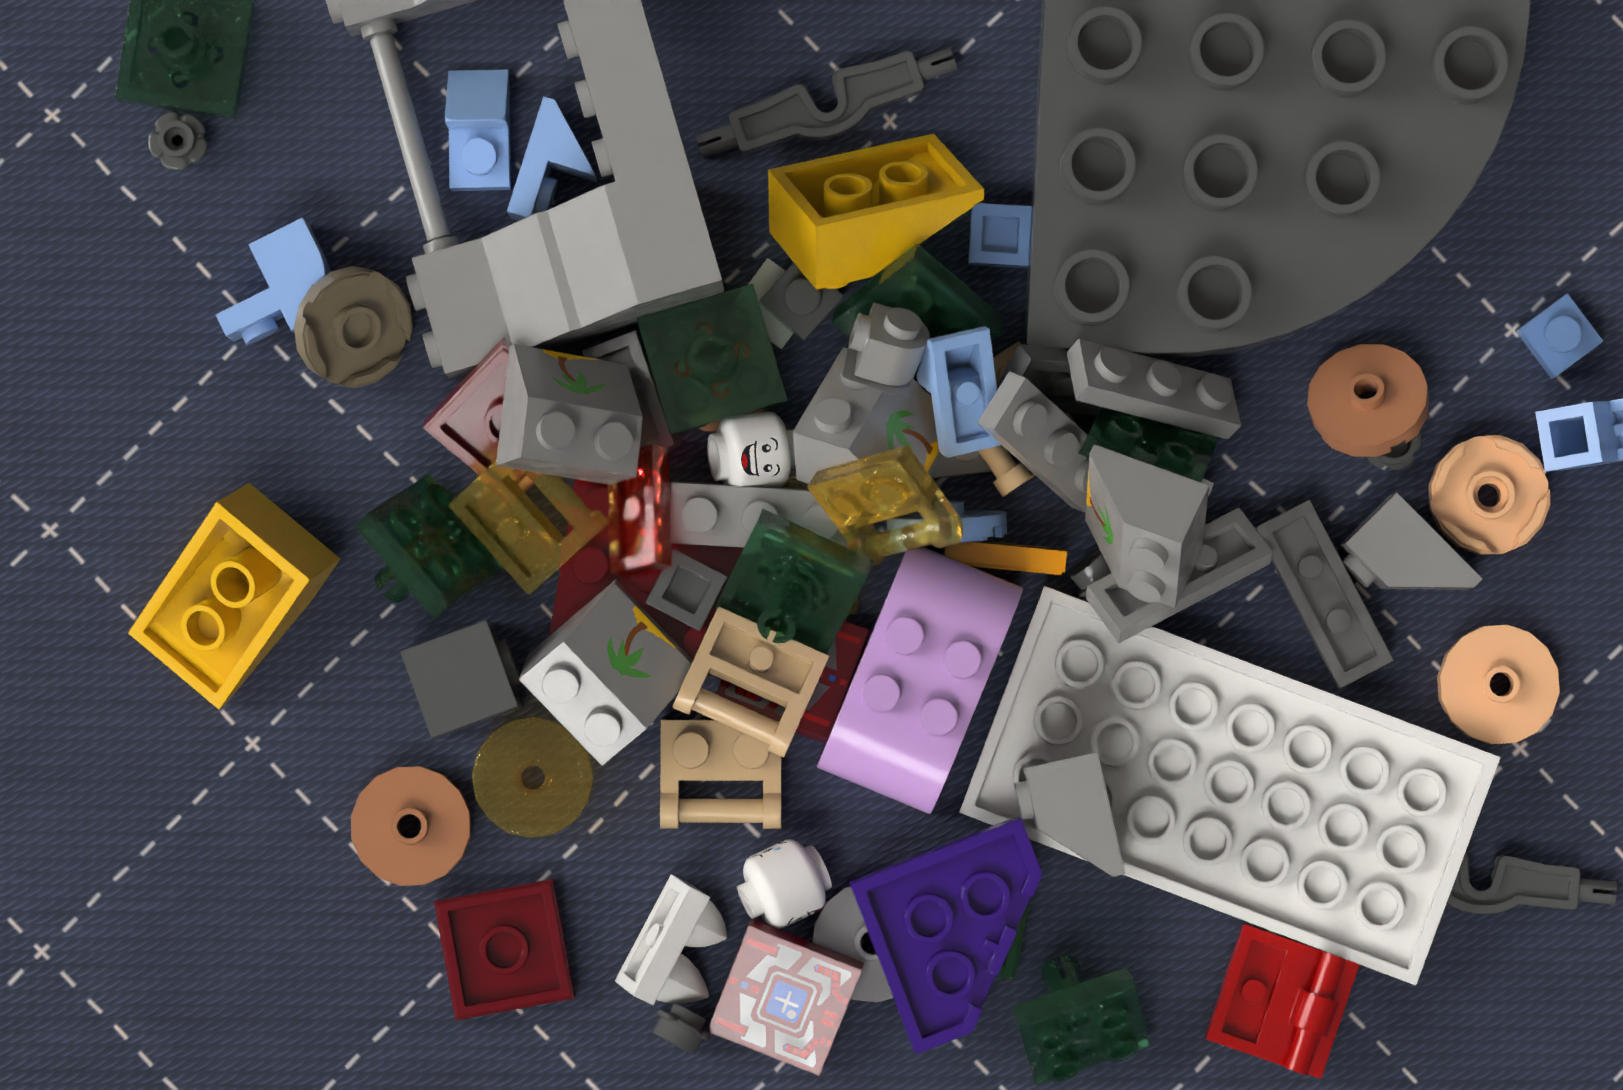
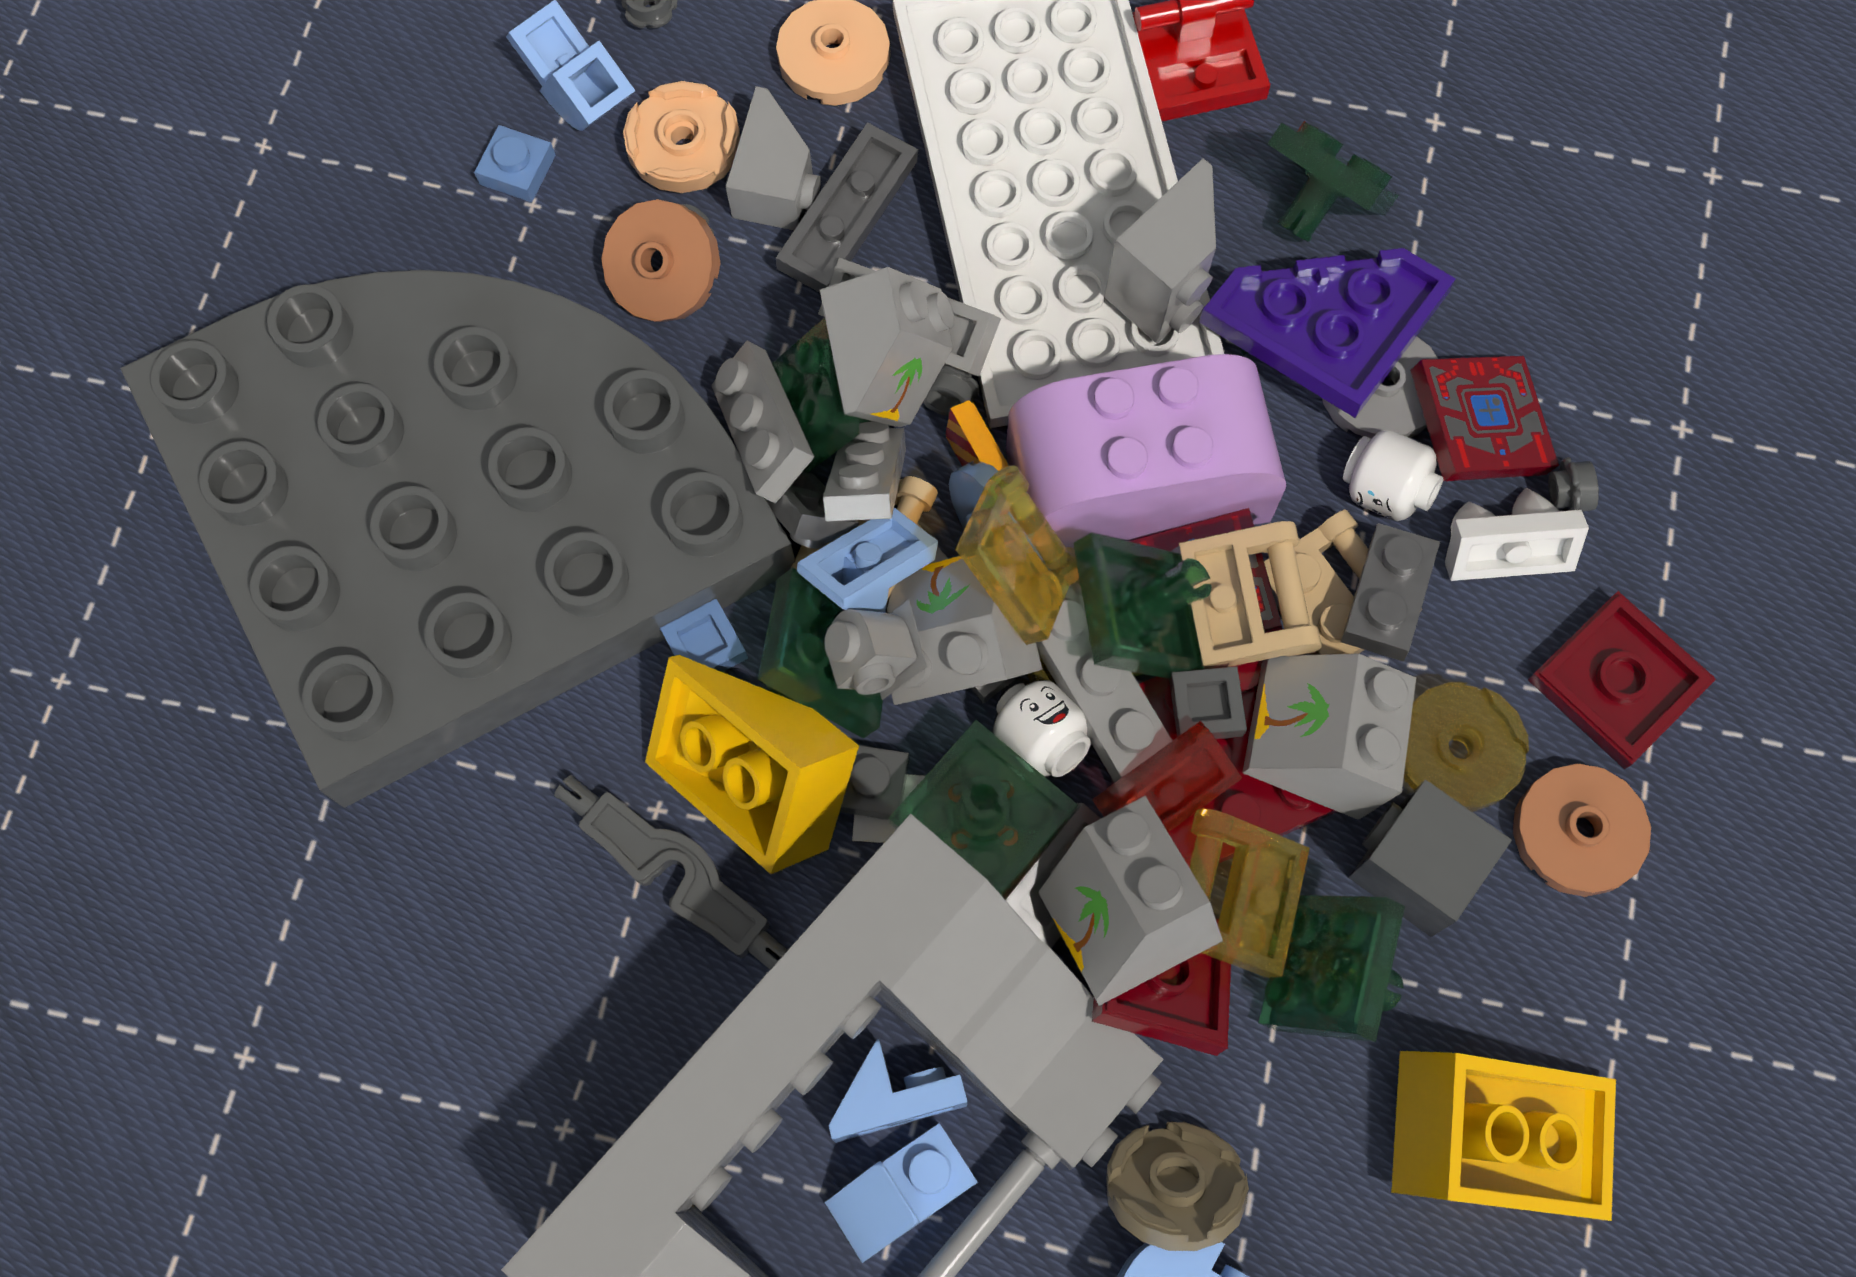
camera: 120 degrees left, 15 degrees down
(686, 804) = (1390, 592): none -> flat silver plate

